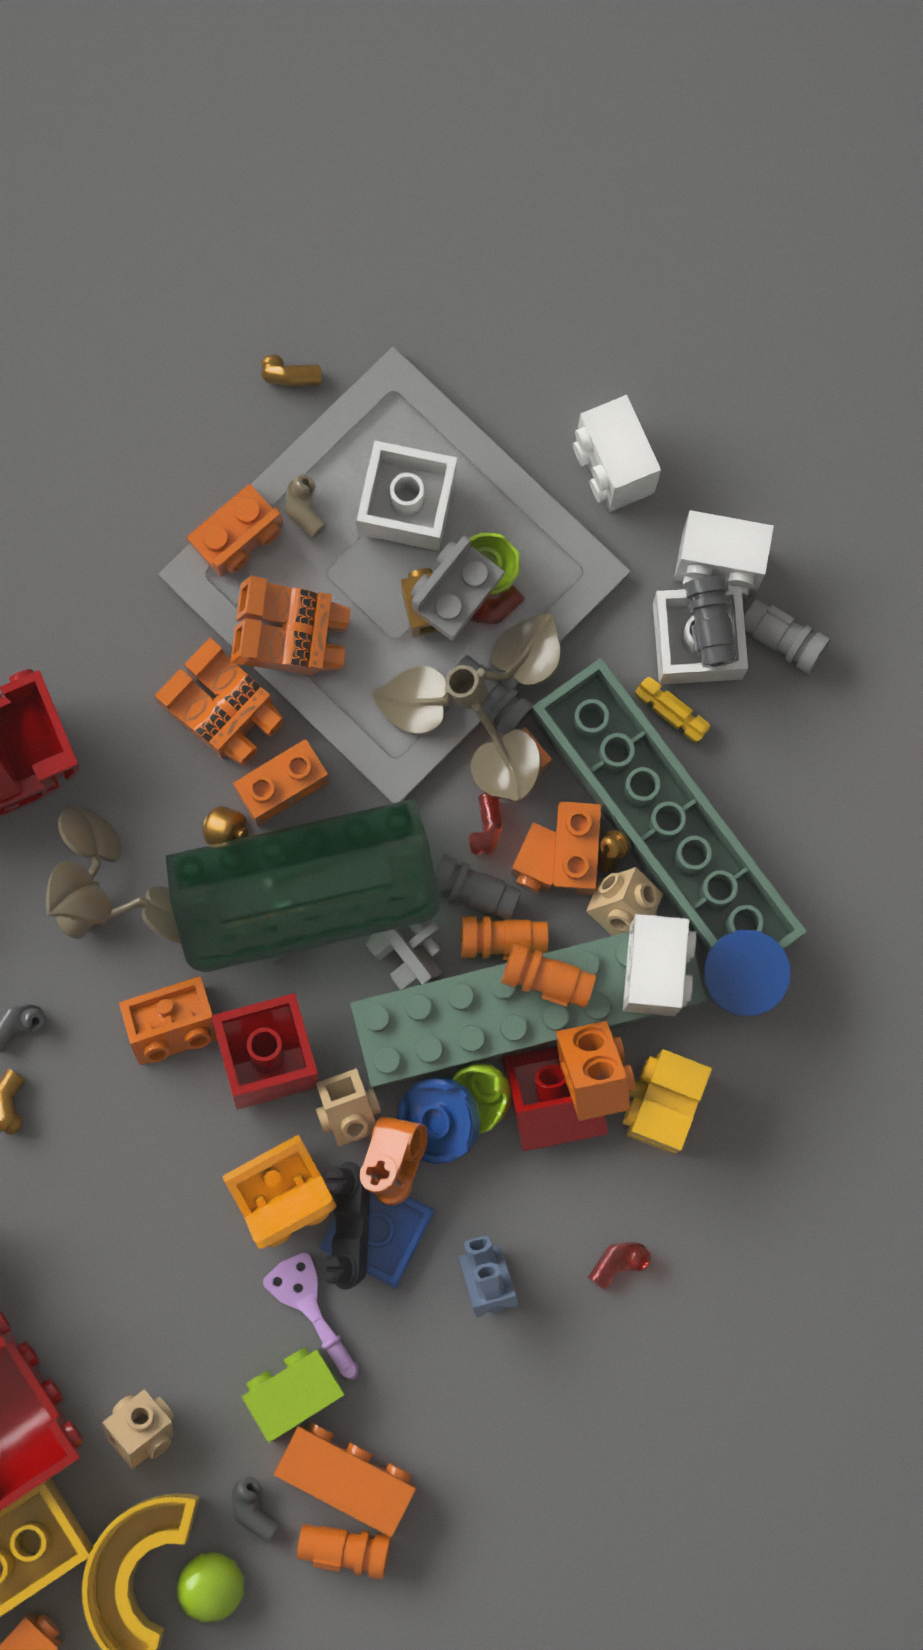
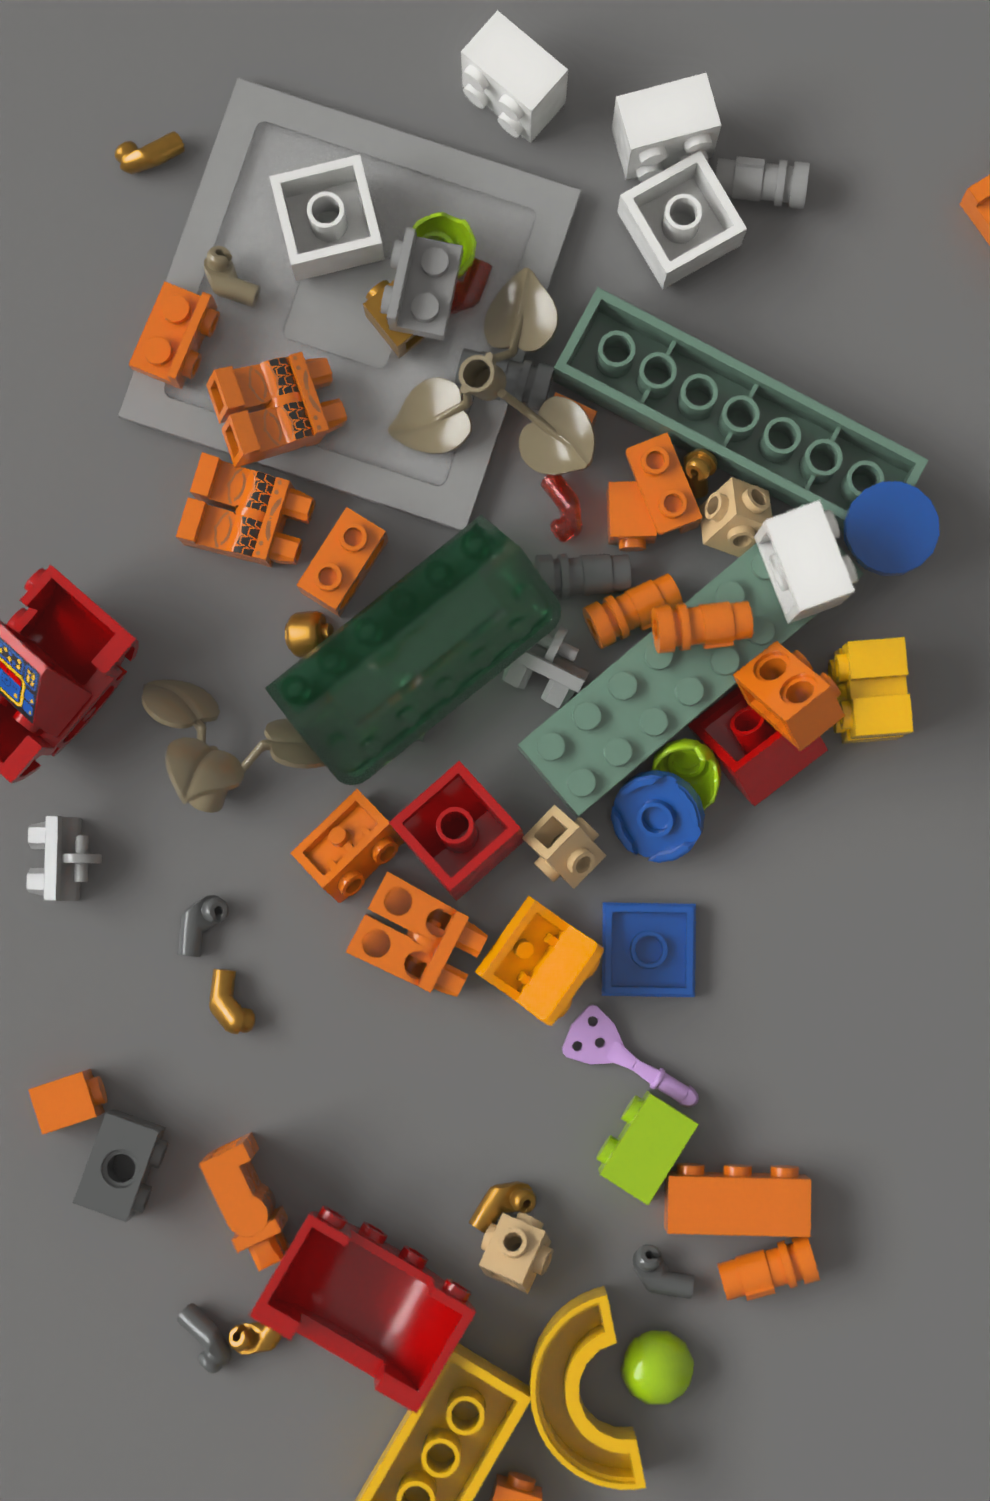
camera: 20 degrees left, 5 degrees up
(152, 1379) = (503, 1199): none -> pearl gold arm
(198, 1131) = (426, 946): none -> orange hips
(349, 1245) = (634, 984): black piece -> none
(393, 1156) = (630, 868): orange piece -> none
(487, 1277) = (779, 944): sand blue hips -> none
(619, 1258) = (895, 863): clear red arm -> none
(672, 710) = (687, 307): yellow axle -> none
(712, 625) = (693, 200): dark grey axle -> none

